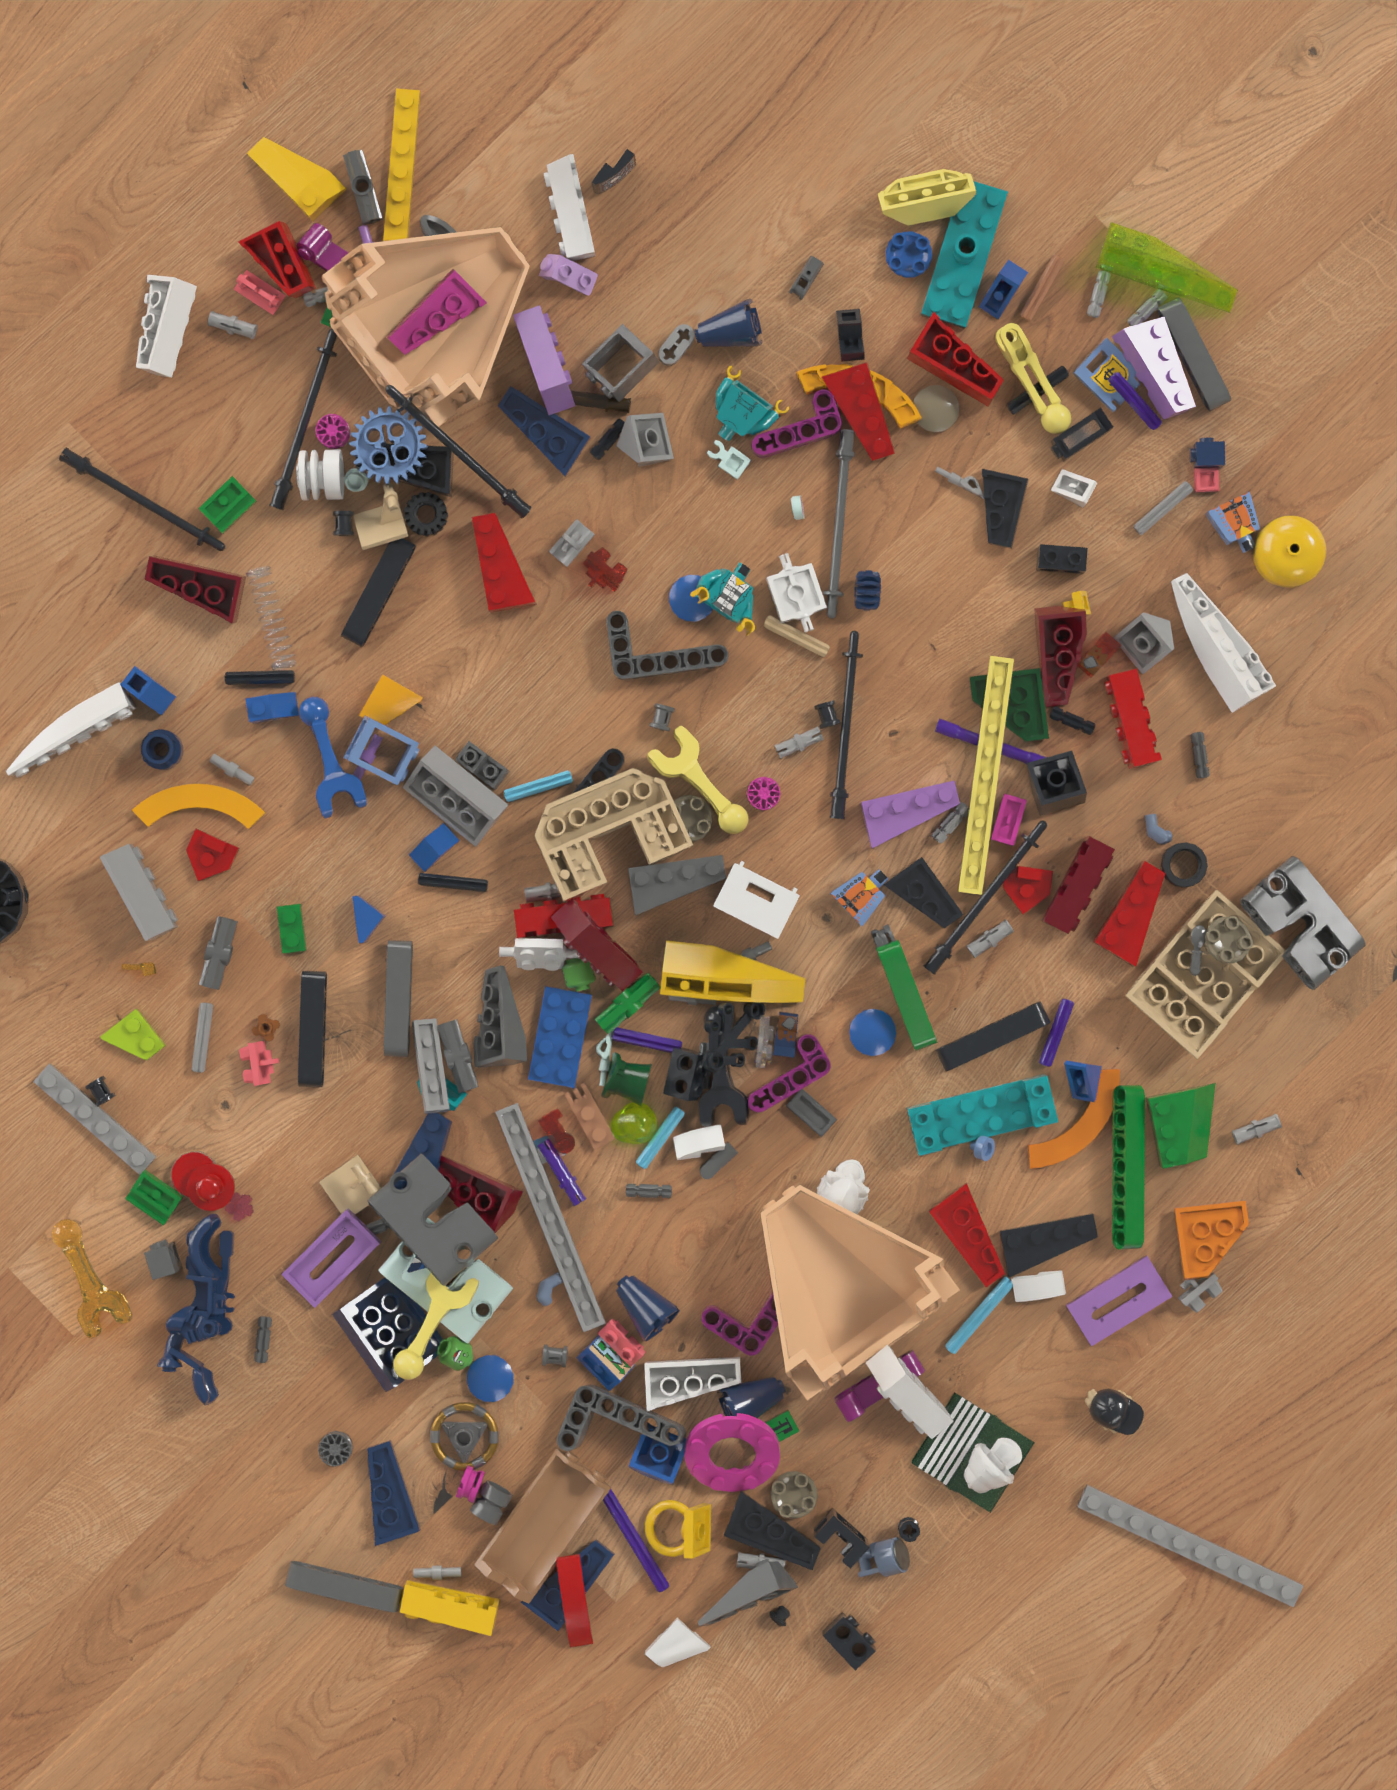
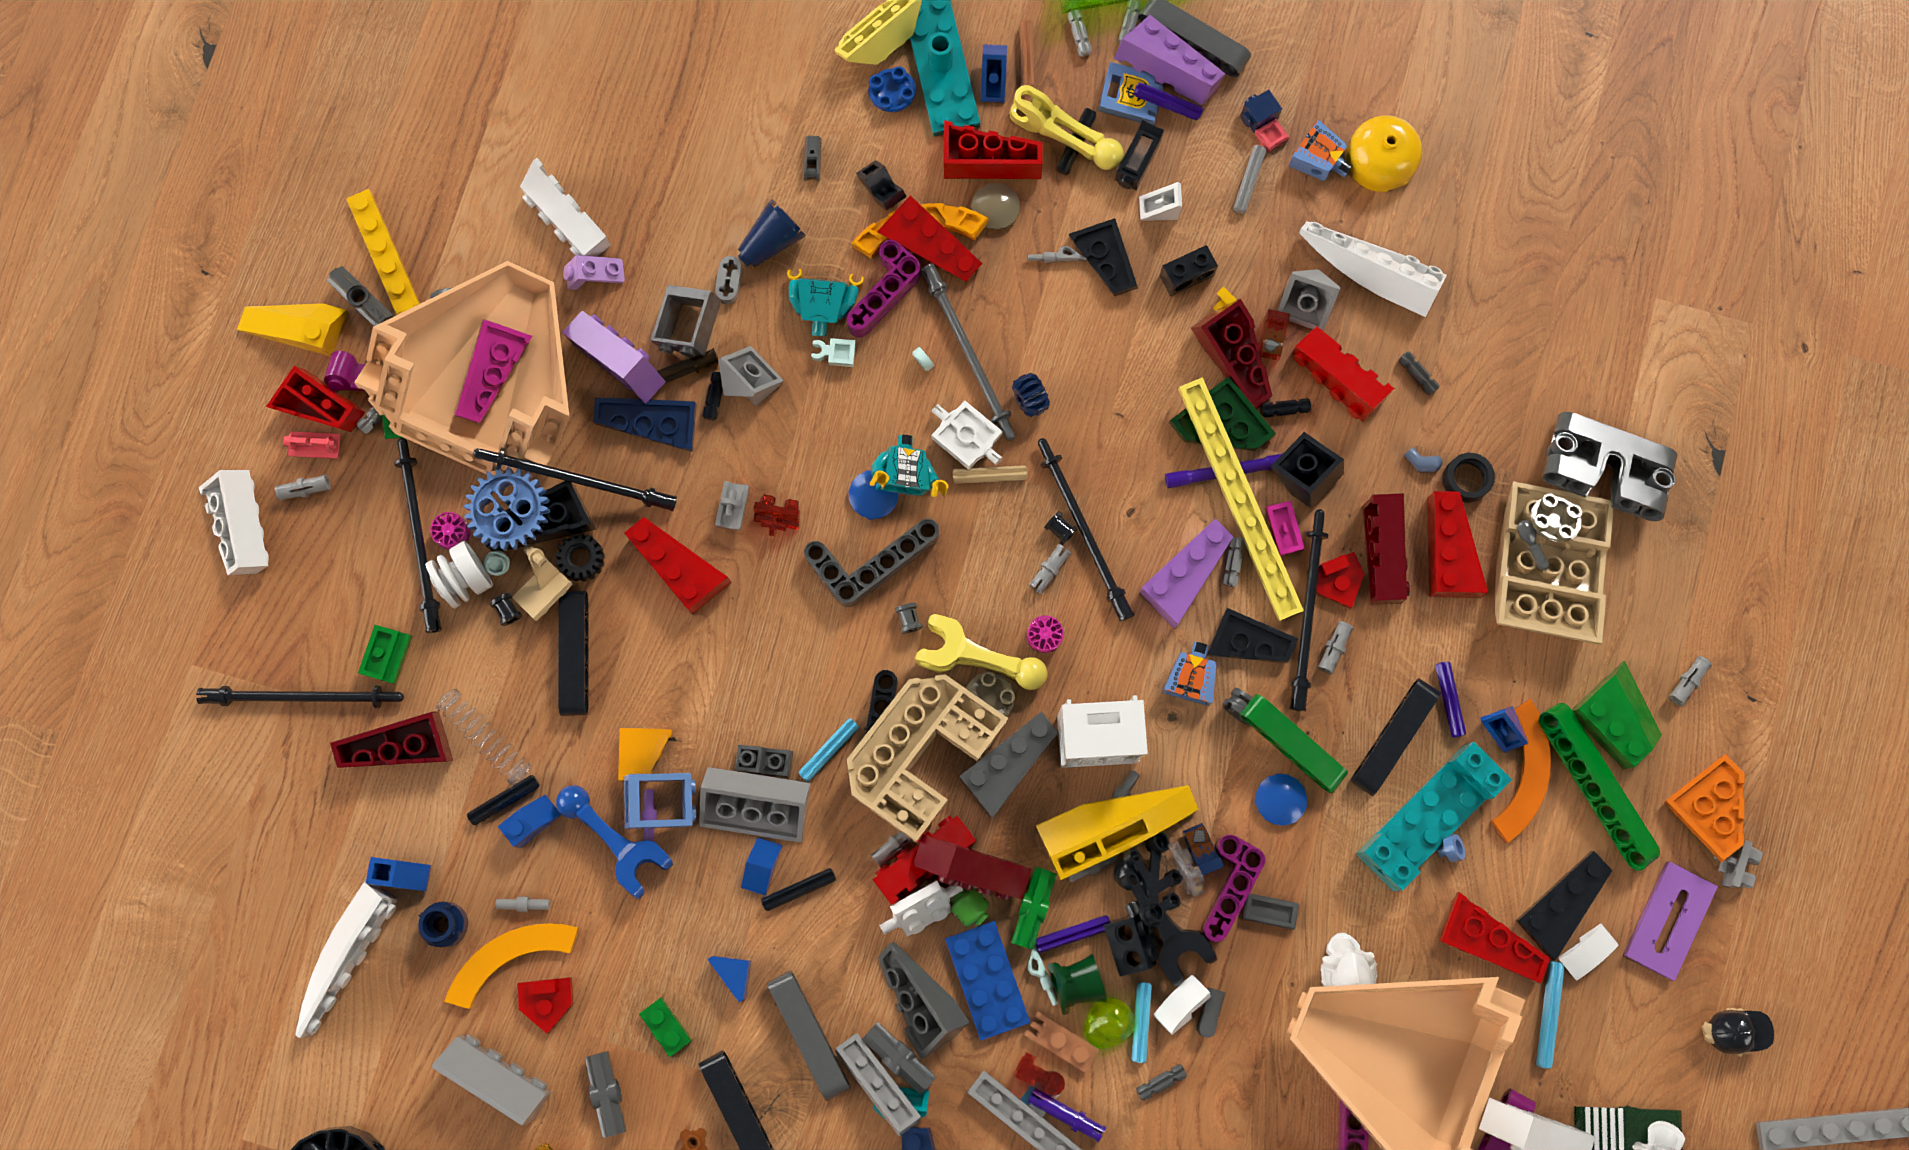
camera: 30 degrees left, 10 degrees down
(610, 176) = (585, 162): black slope -> none

